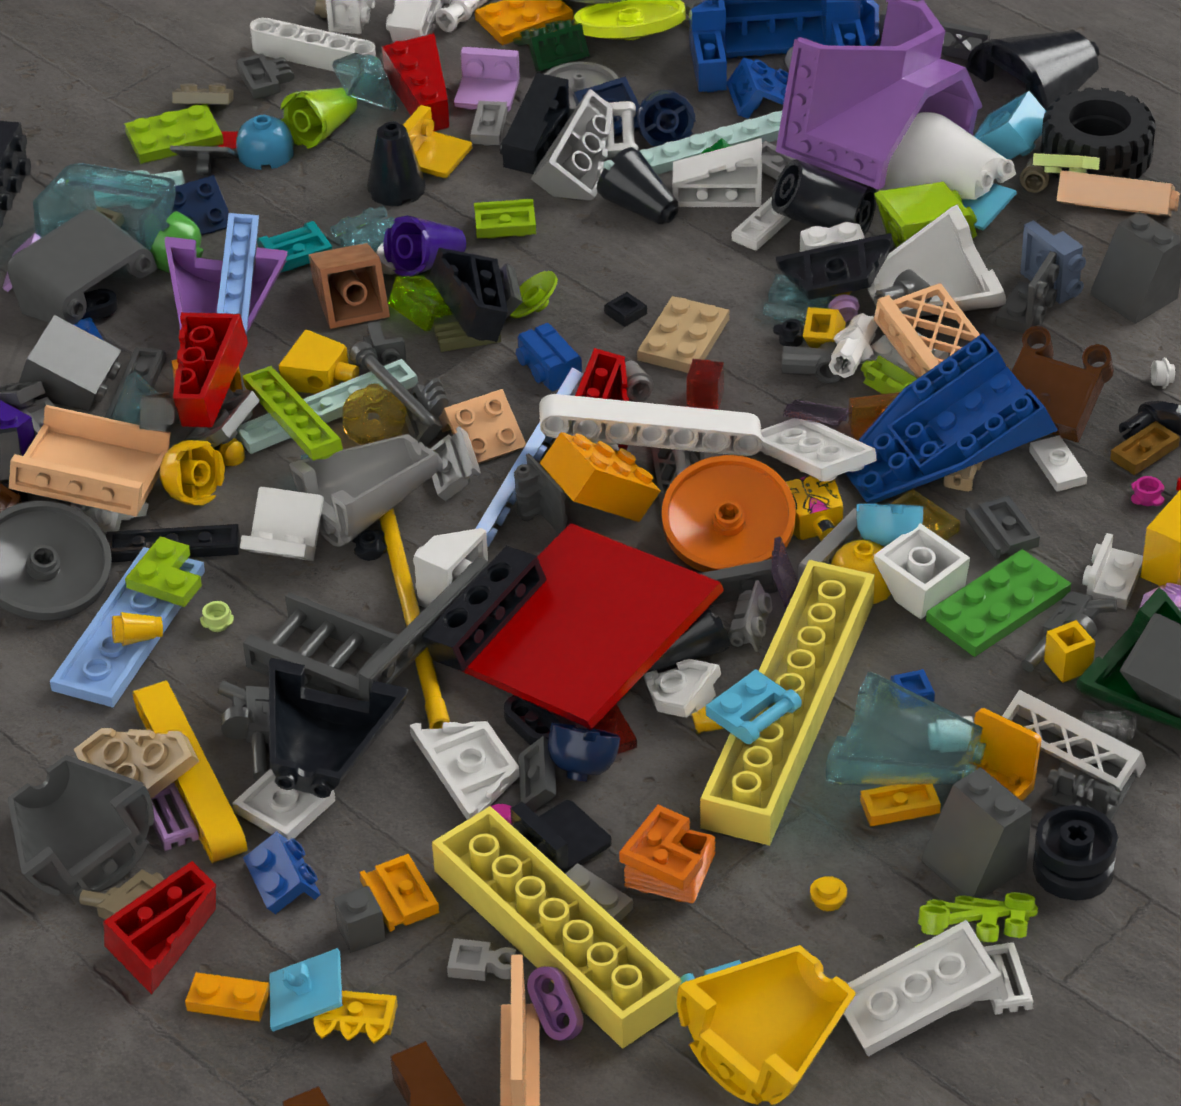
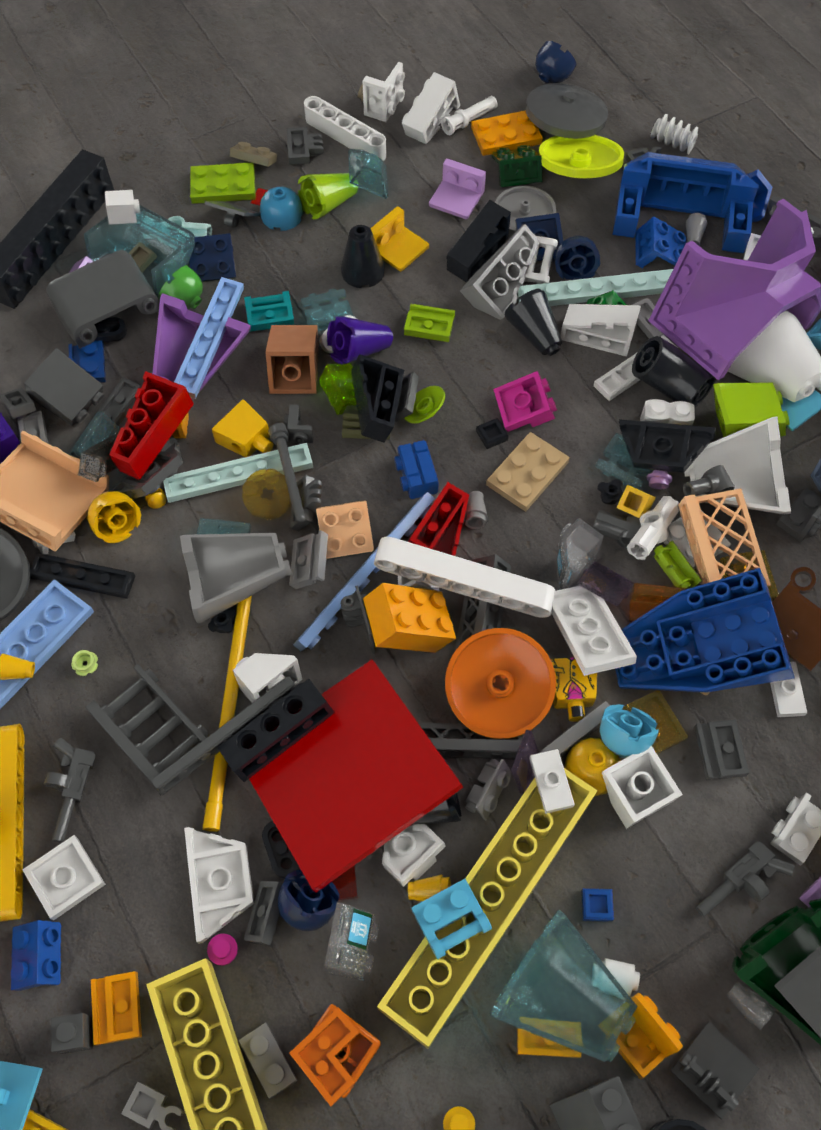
camera: 15 degrees right, 20 degrees up
(71, 164) = (121, 206): none -> white brick
(160, 575) = (50, 613): lime plate -> none
(285, 524) = (159, 593): white bracket -> none
(293, 413) = (201, 485): lime plate -> none
(319, 733) = (104, 826): black cone -> none
(417, 76) = (409, 176): red wedge -> none
(489, 123) = (447, 228): light grey plate -> none
(562, 833) = (260, 988): black bracket -> none
(647, 768) = (351, 942): none -> clear slope
(655, 267) = (525, 402): none -> dark pink plate
(705, 384) = (526, 532): clear red brick -> none
(771, 382) = (576, 551): none -> clear slope
(820, 574) = (551, 781): none -> white plate
(998, 602) = (695, 829): bright green plate -> none
(1069, 650) = (739, 916): yellow brick -> none
(1080, 734) = (724, 1013): white fence -> none

